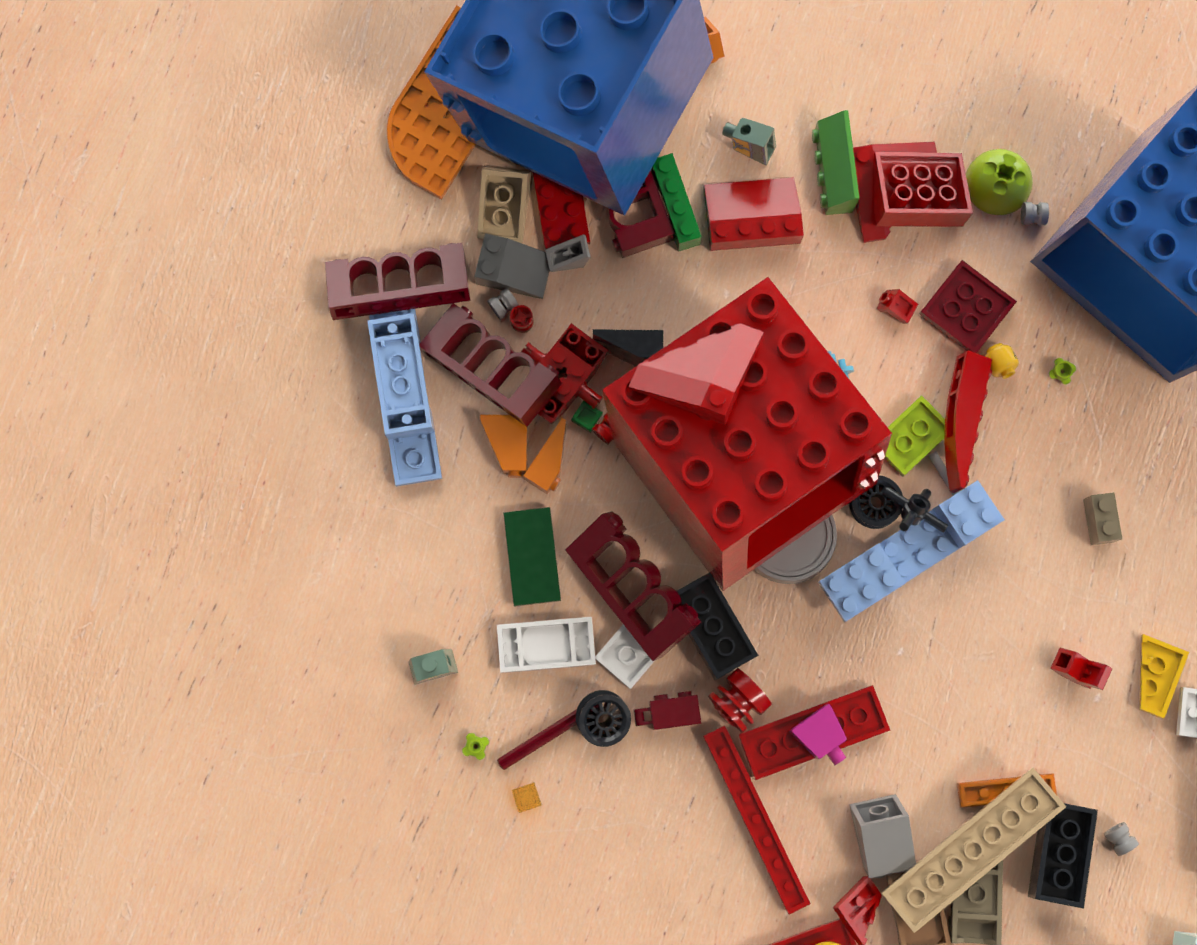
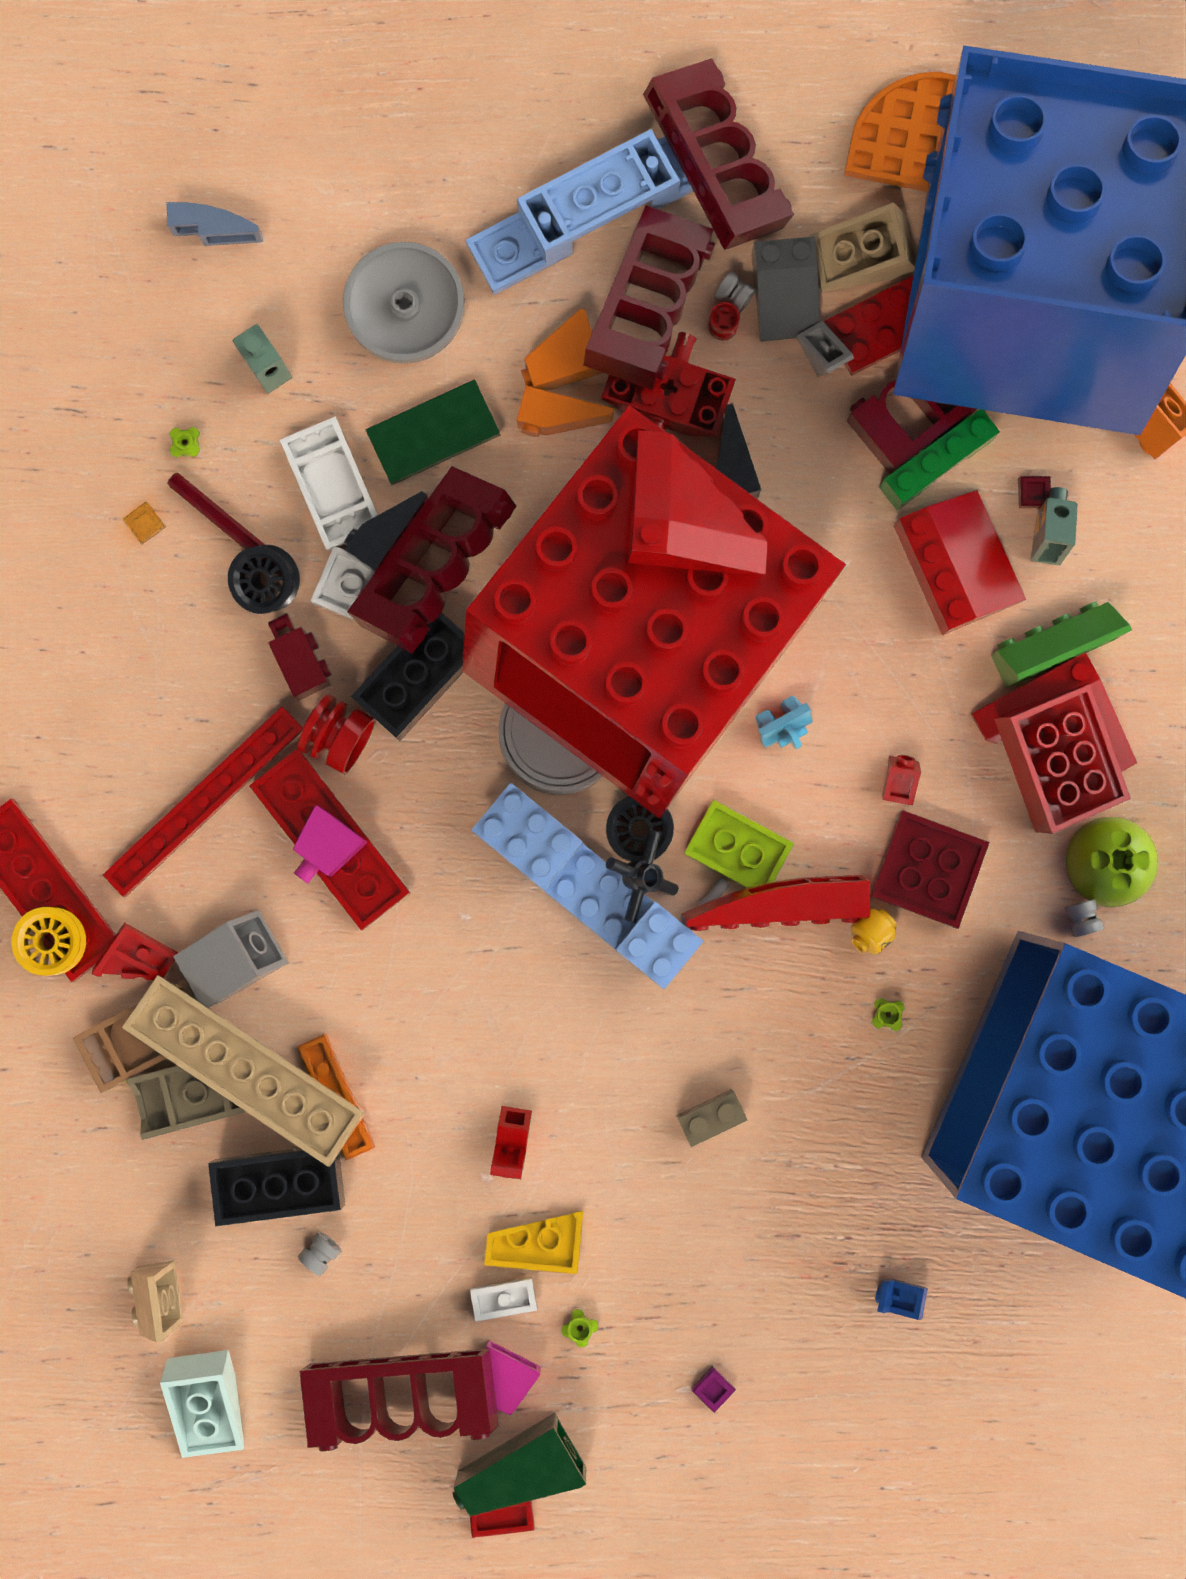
camera: 75 degrees right, 5 degrees up
(315, 670) = (211, 224): none -> sand blue slope
(428, 545) = (404, 302): none -> light grey dish
(602, 620) = (379, 535): none -> black slope
(718, 146) = (1033, 491): none -> dark red tile

